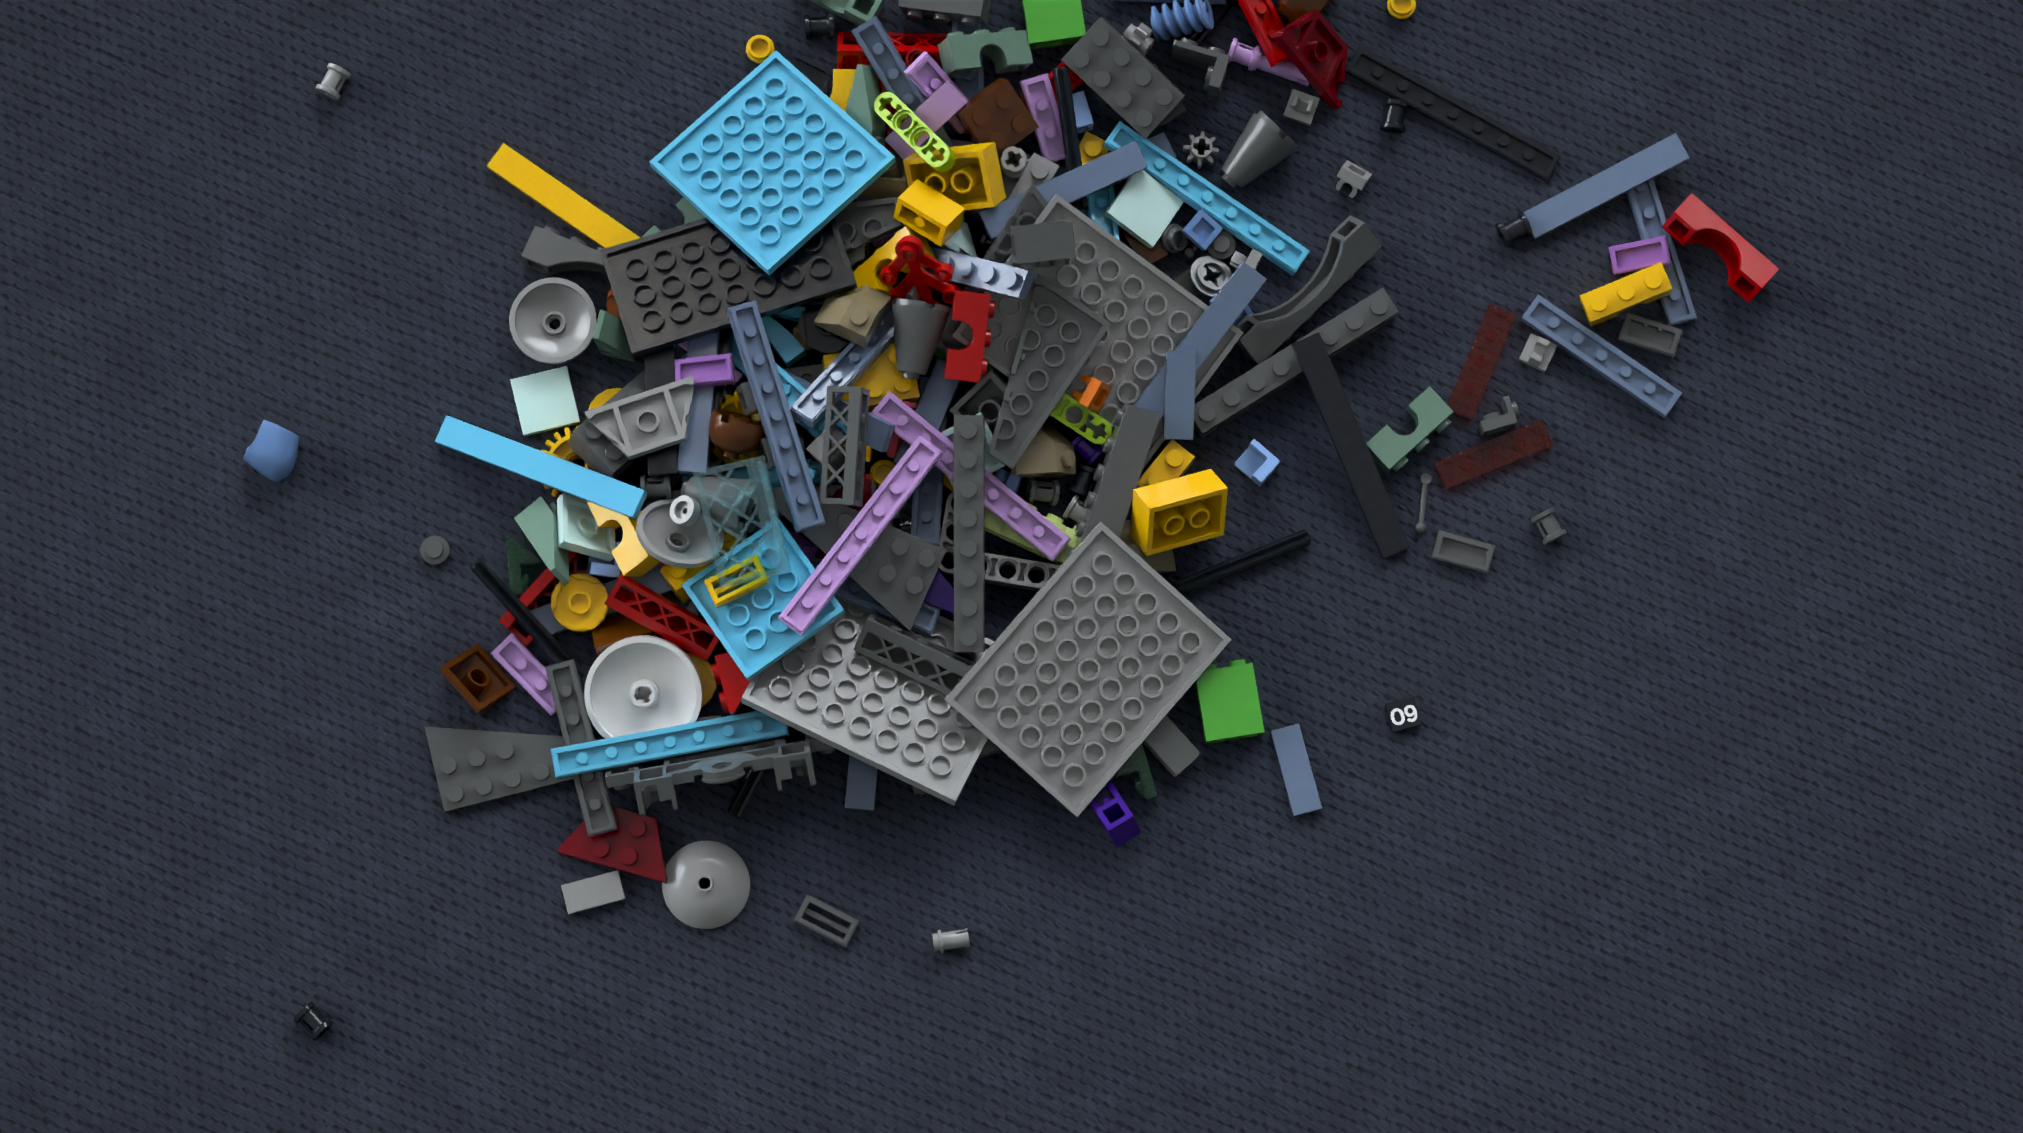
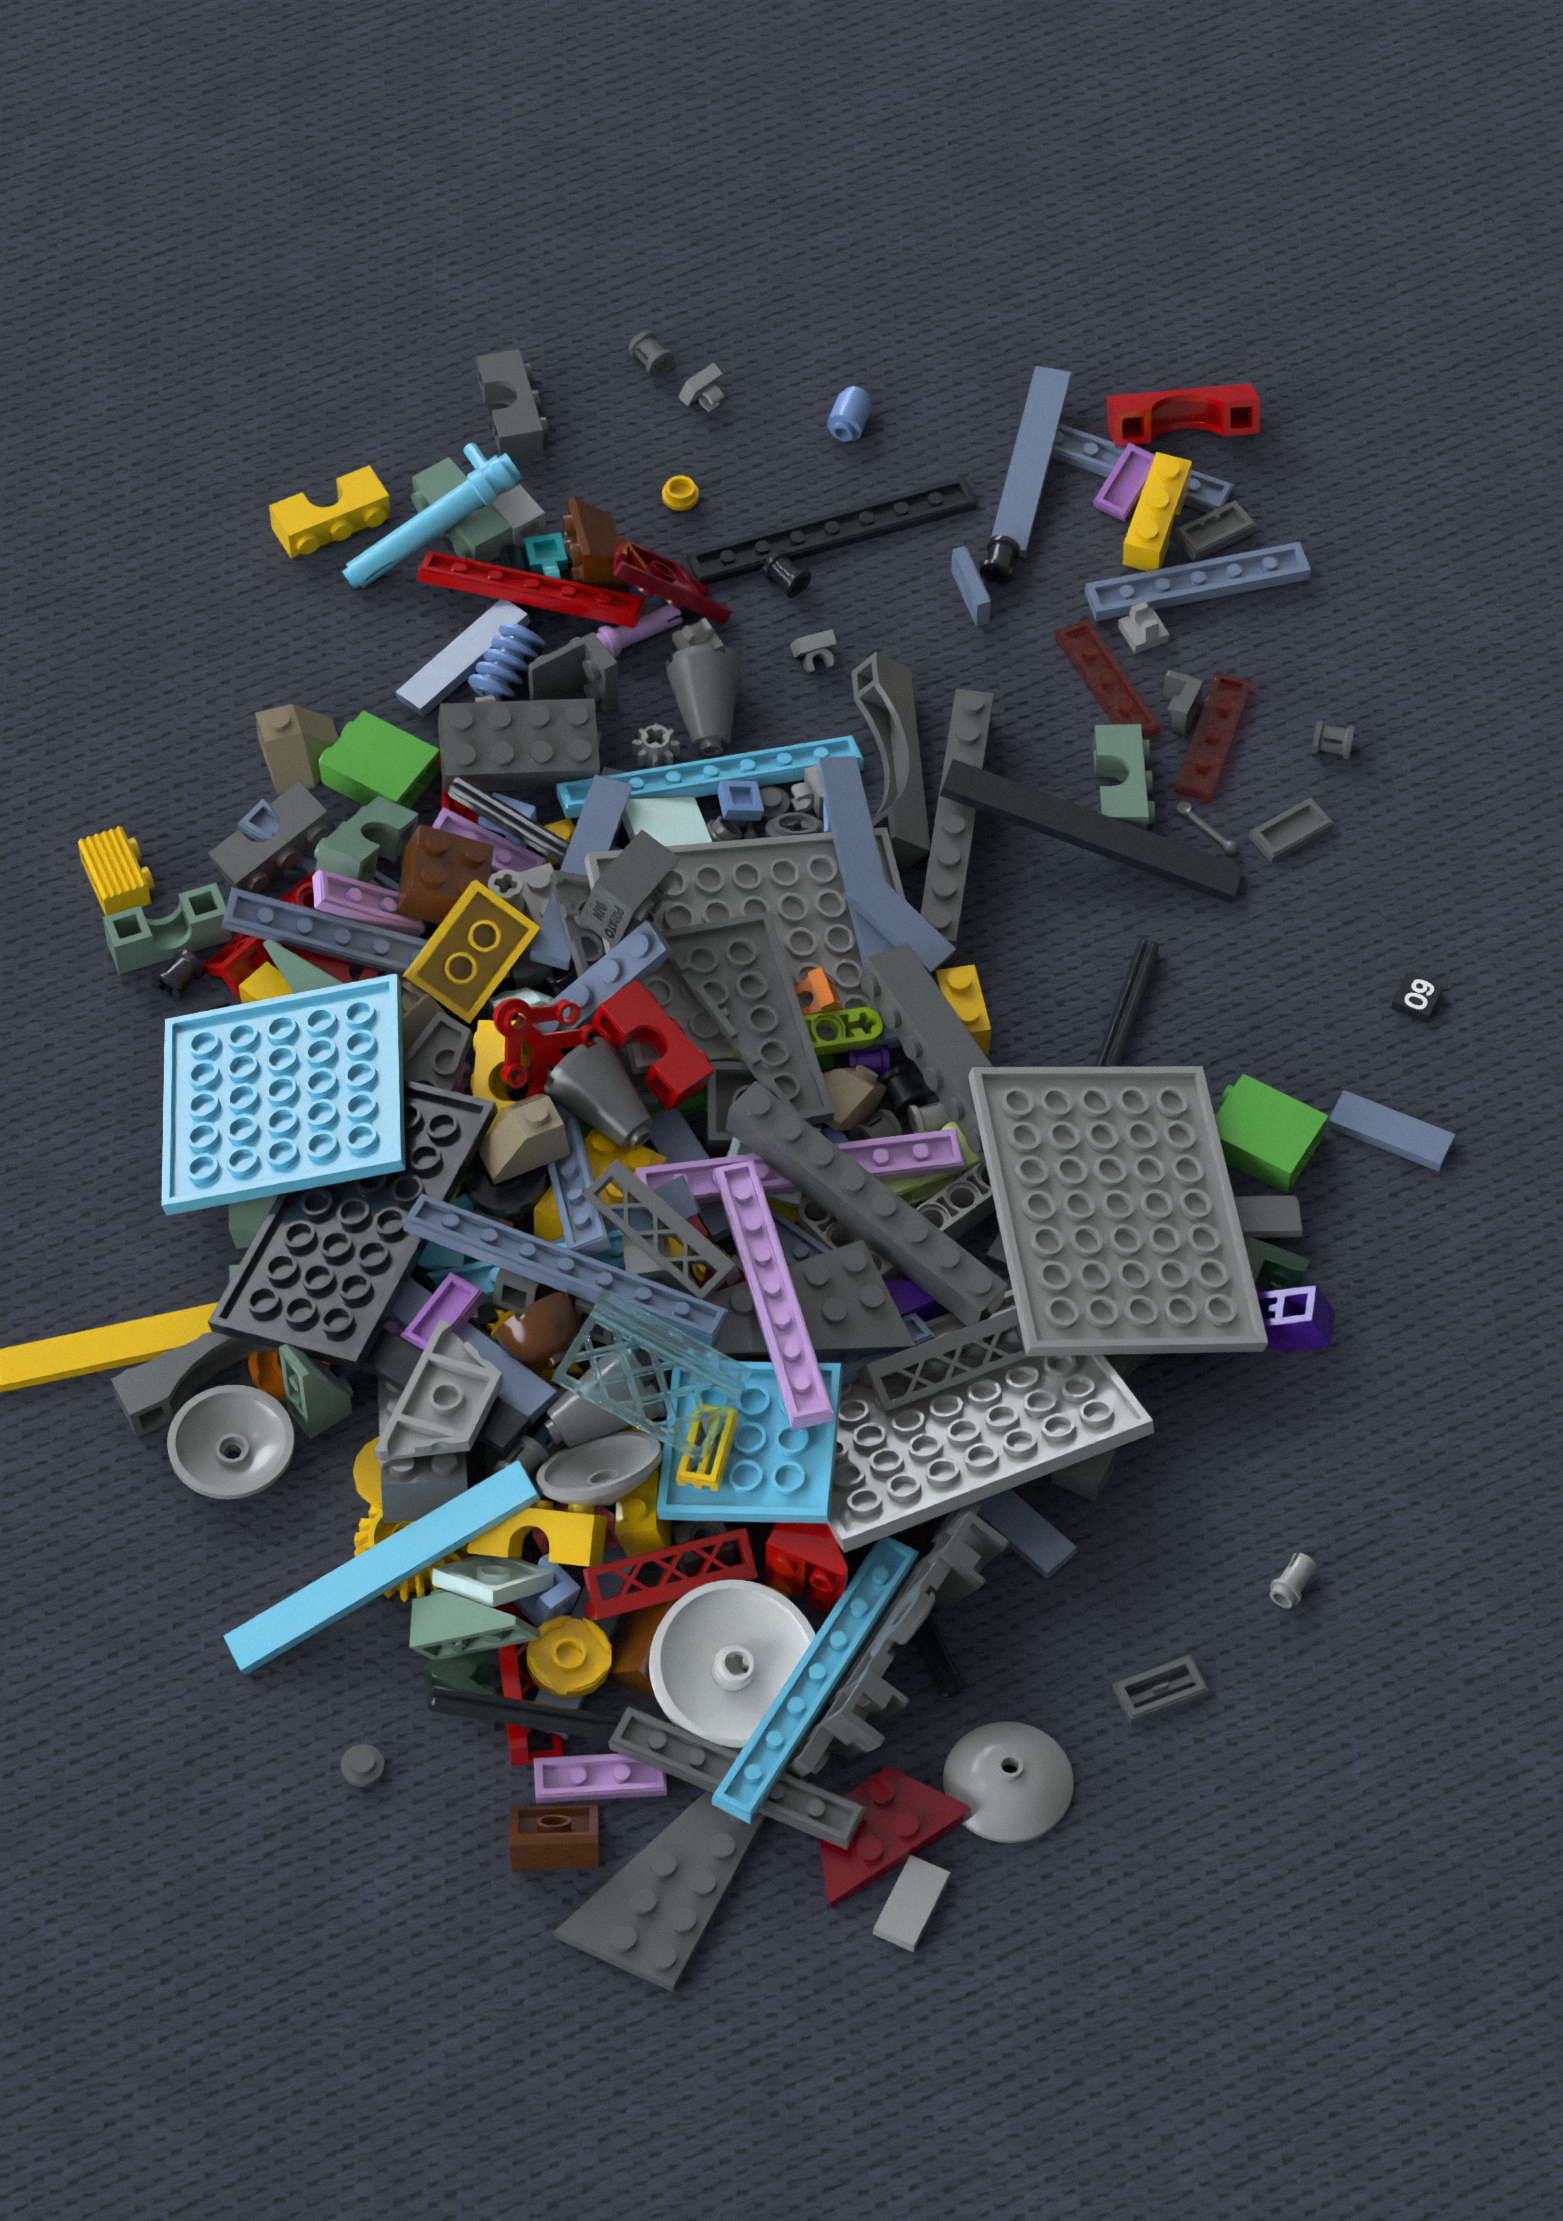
camera: 50 degrees left, 25 degrees down
(273, 451) = (84, 1837): medium blue piece -> none
(545, 401) = (307, 1528): light aqua tile -> none
(685, 511) = (580, 1438): light grey tile -> none
(759, 48) = (143, 1045): yellow plate -> none
(914, 132) = (388, 933): lime beam -> none
(929, 212) = (482, 985): yellow brick -> none
(933, 113) = (383, 926): lavender tile -> none
(1178, 512) = (1022, 1010): yellow brick -> none
(1257, 463) = (1029, 928): light blue panel -> none
(1478, 229) = (971, 586): none -> sand blue tile
(1547, 52) = (849, 414): none -> medium blue brick

